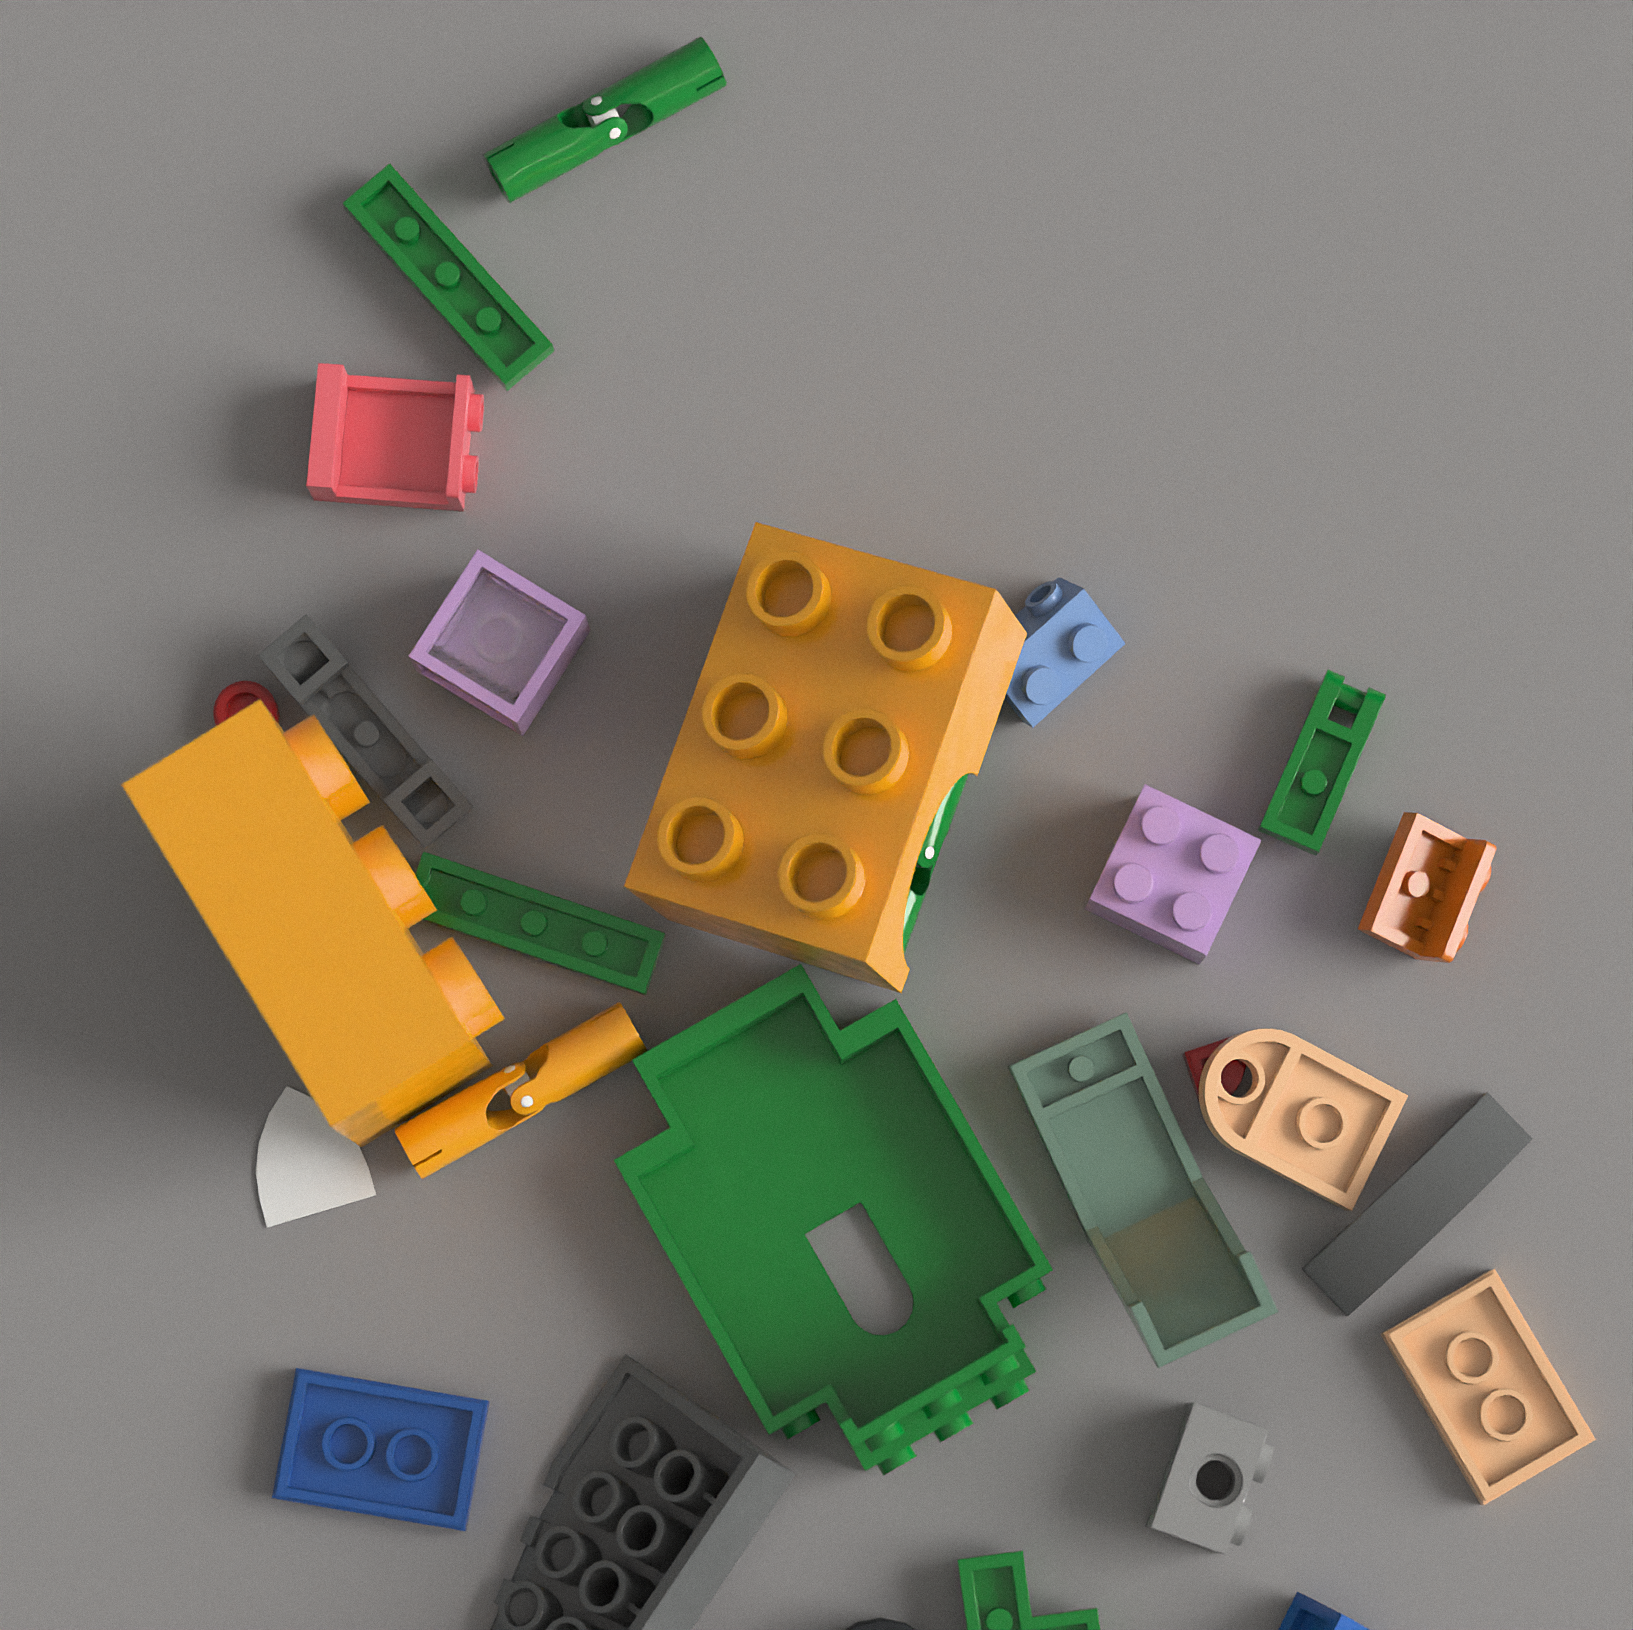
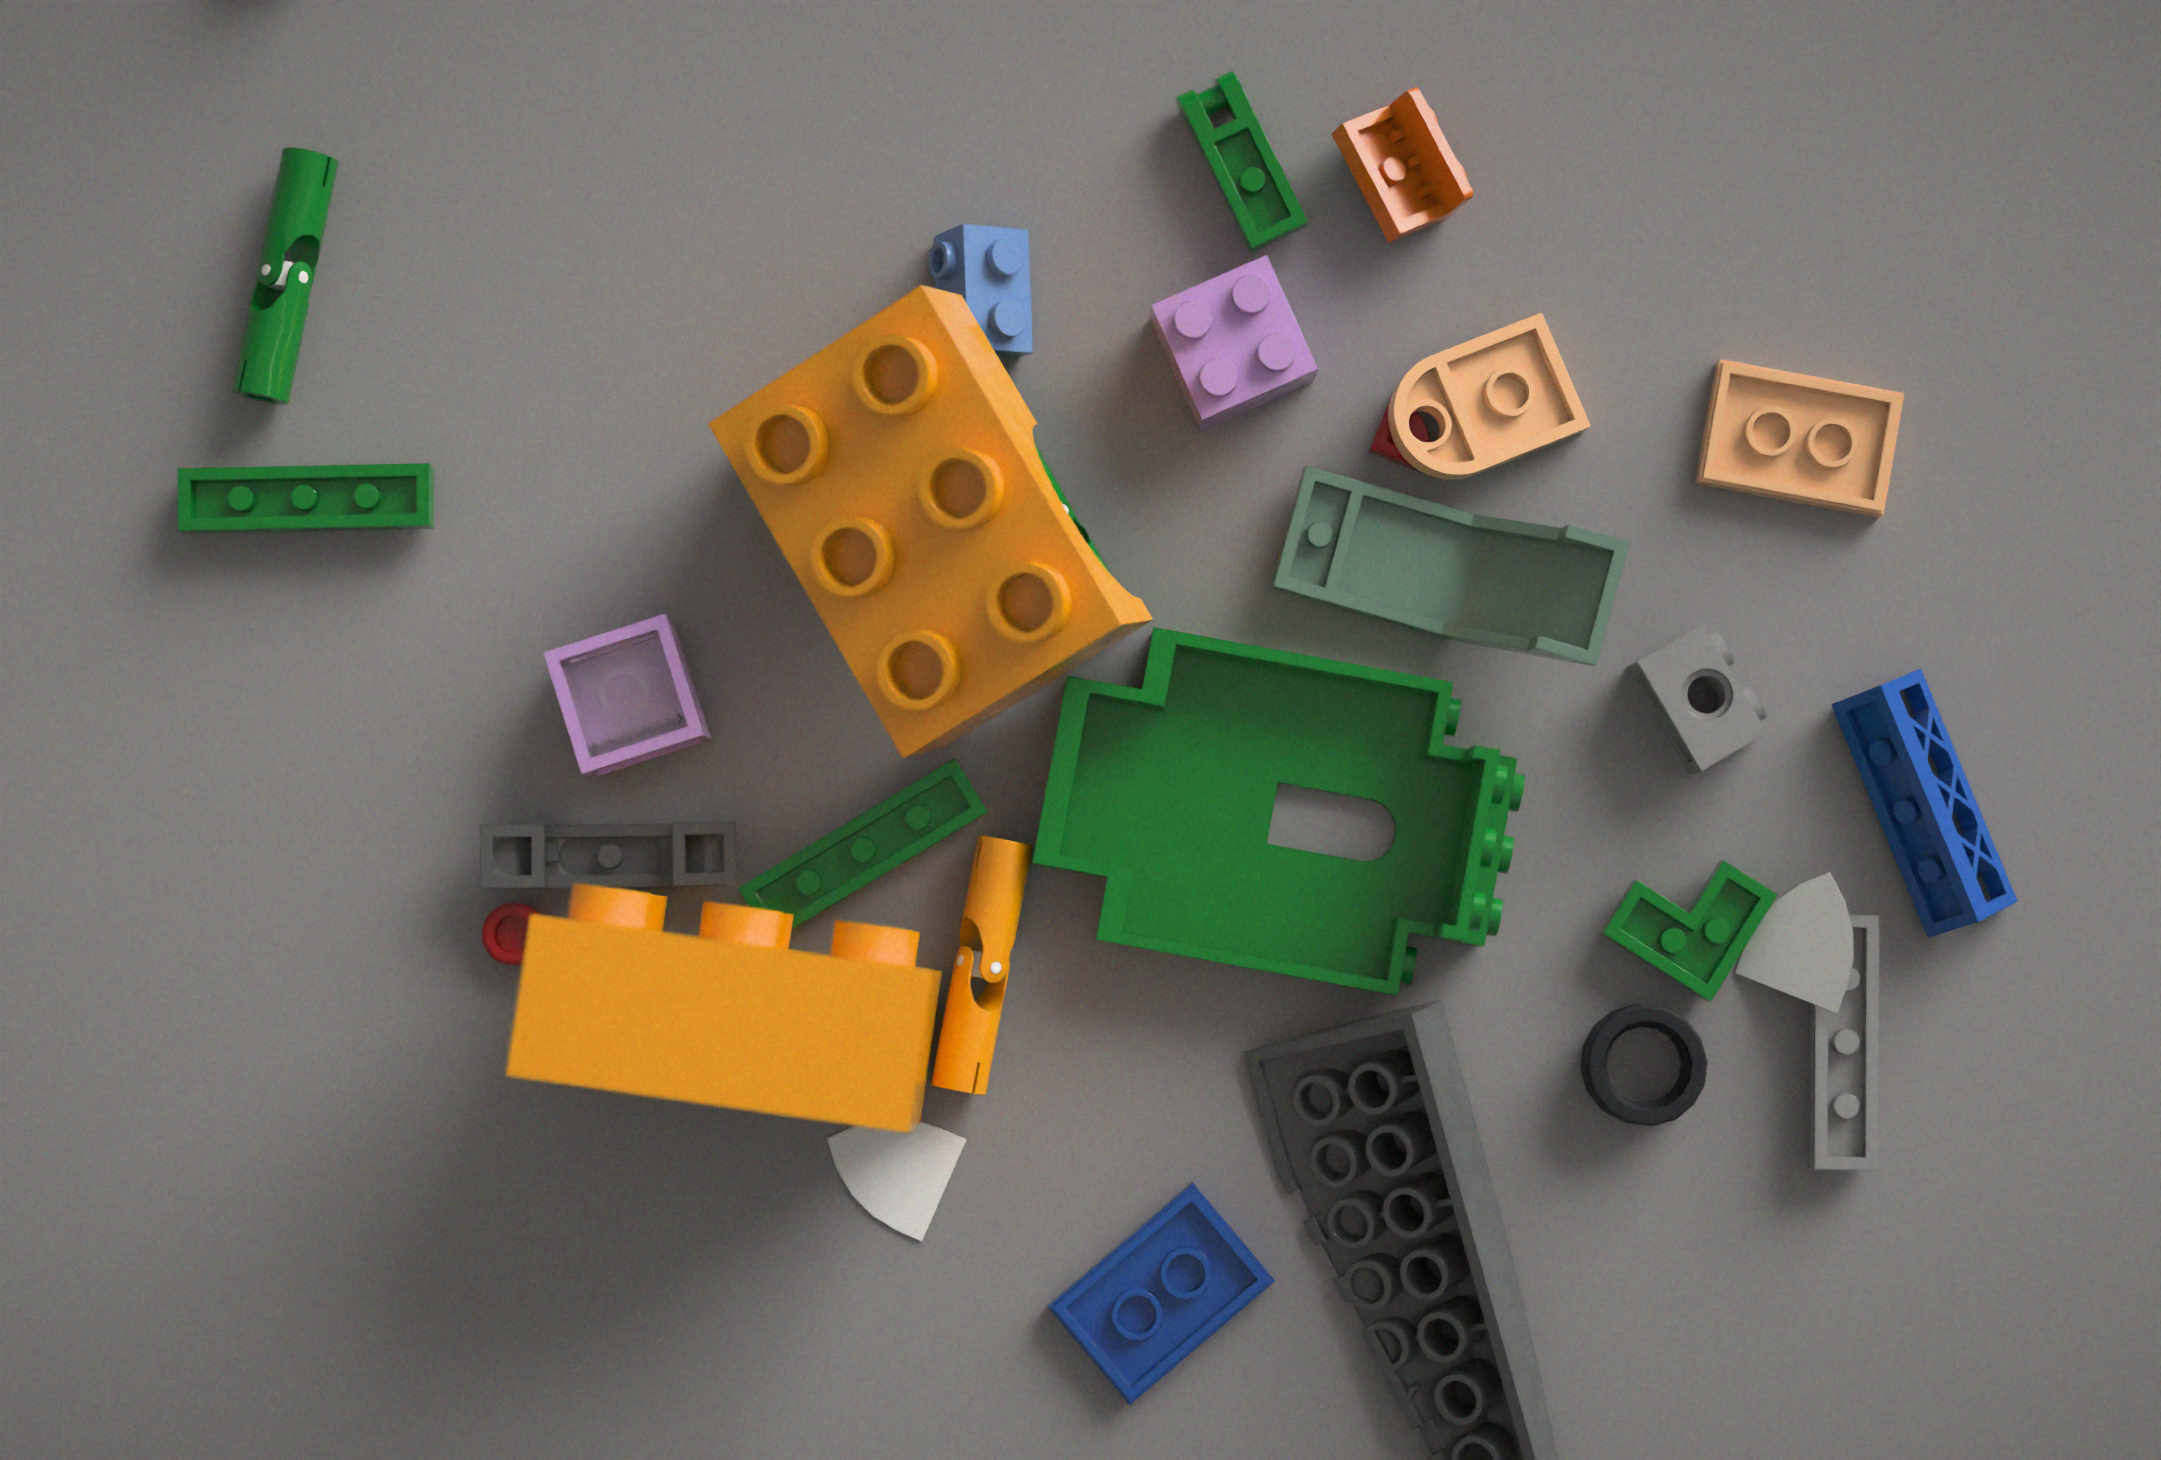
camera: 50 degrees left, 5 degrees up
(393, 440) = (398, 646): coral panel -> none
(1417, 1204) = (1627, 374): dark grey slope -> none

